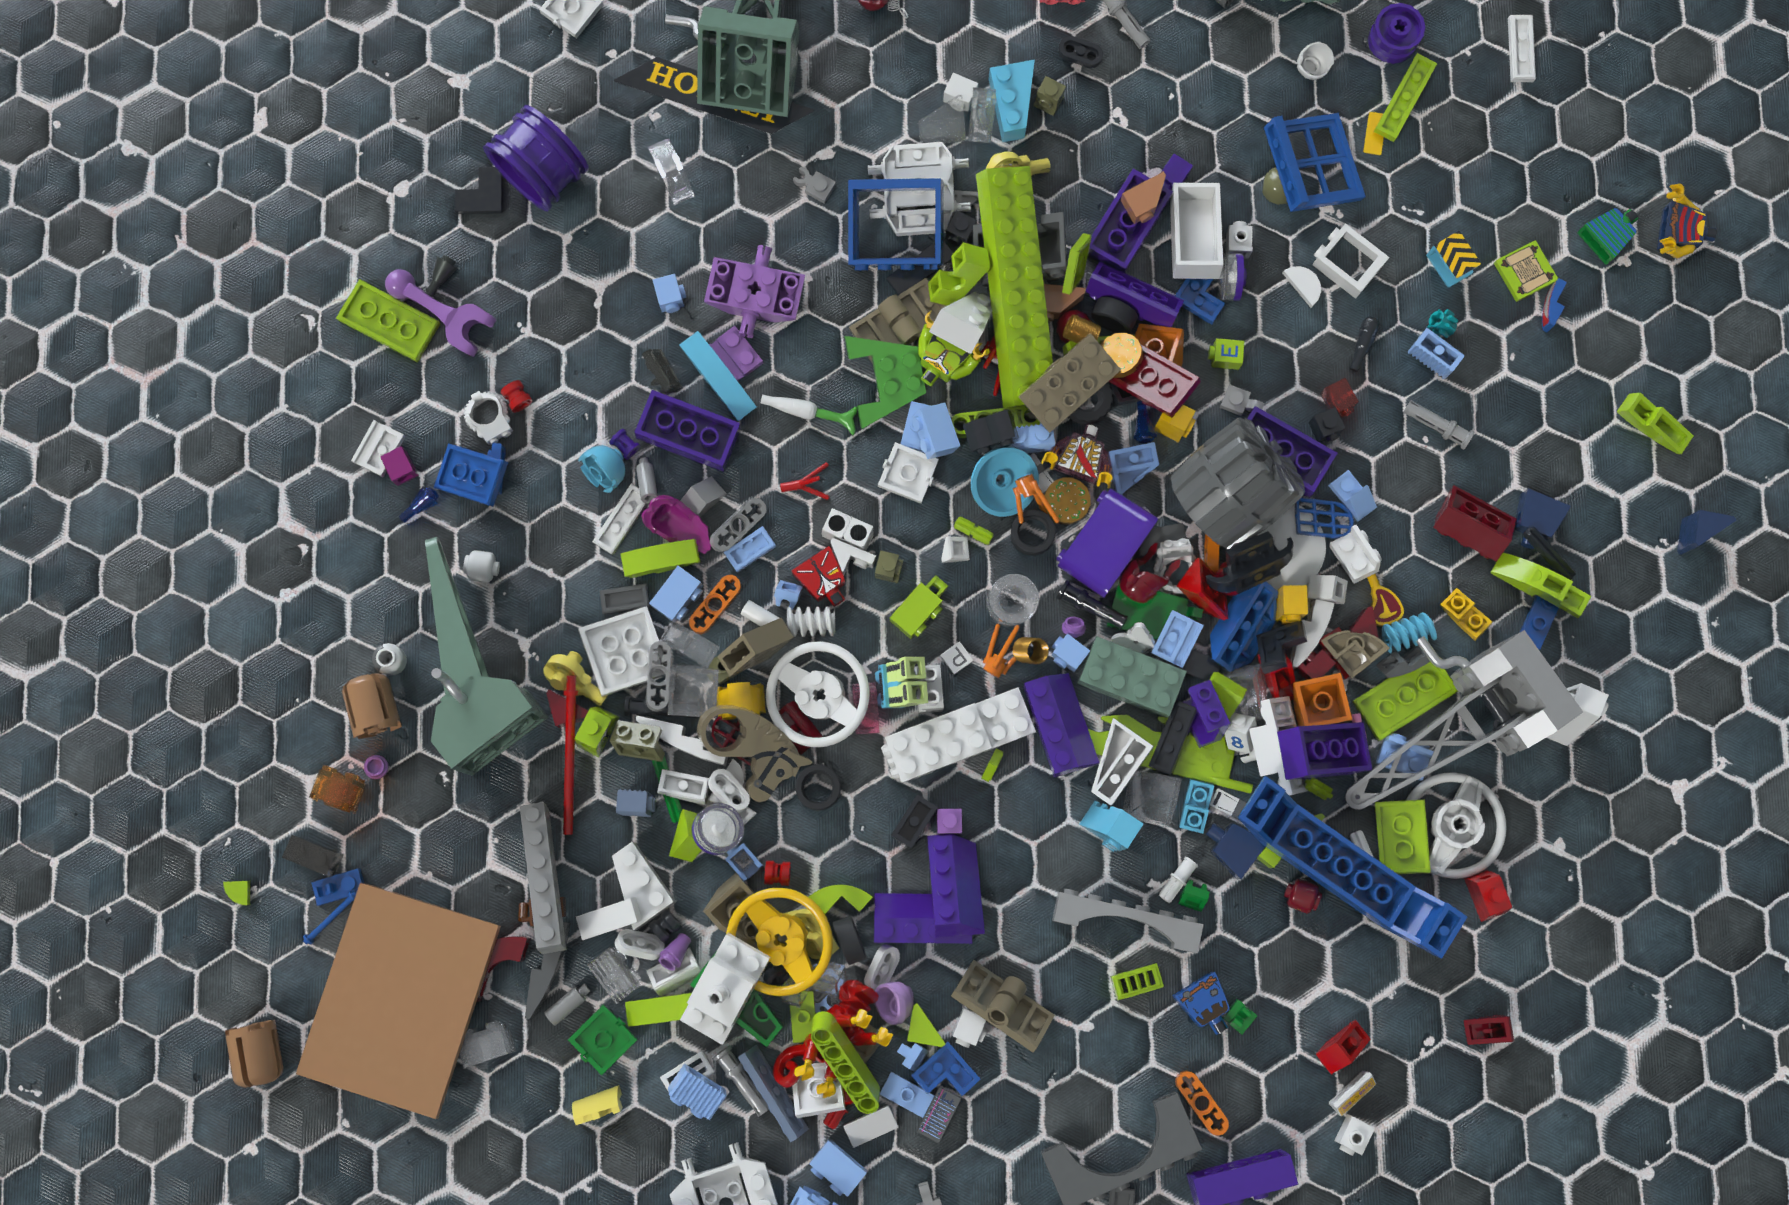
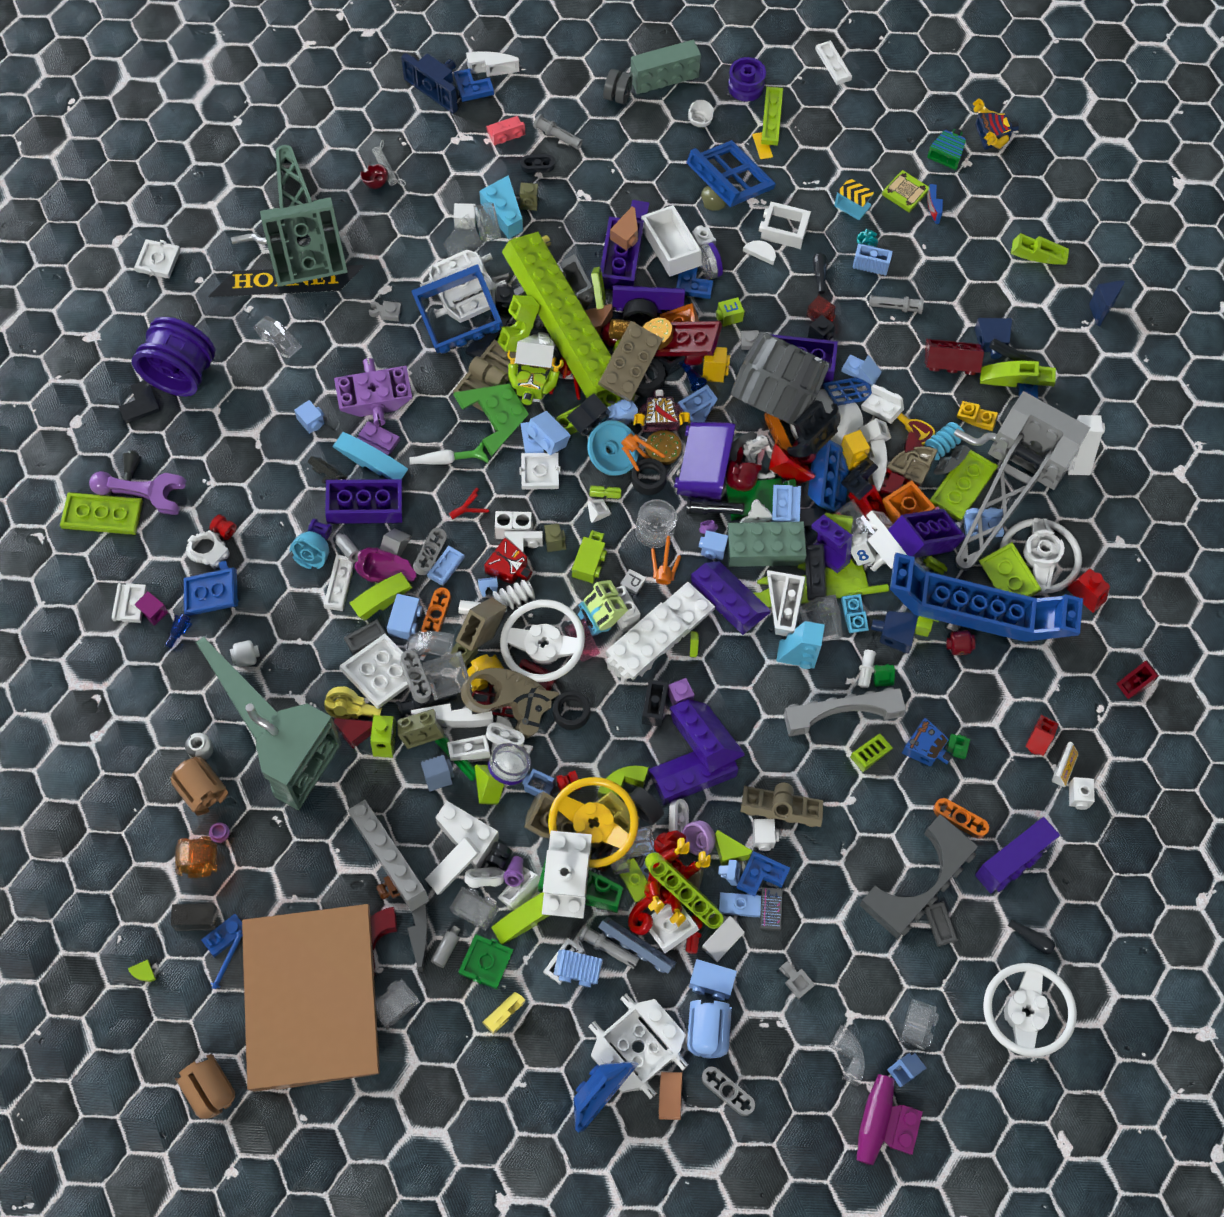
camera: 25 degrees left, 15 degrees down
(570, 694) = (354, 712): red bar -> none
(1040, 651) = (685, 553): pearl gold piece -> none
(1227, 803) = (881, 605): white sticker -> none

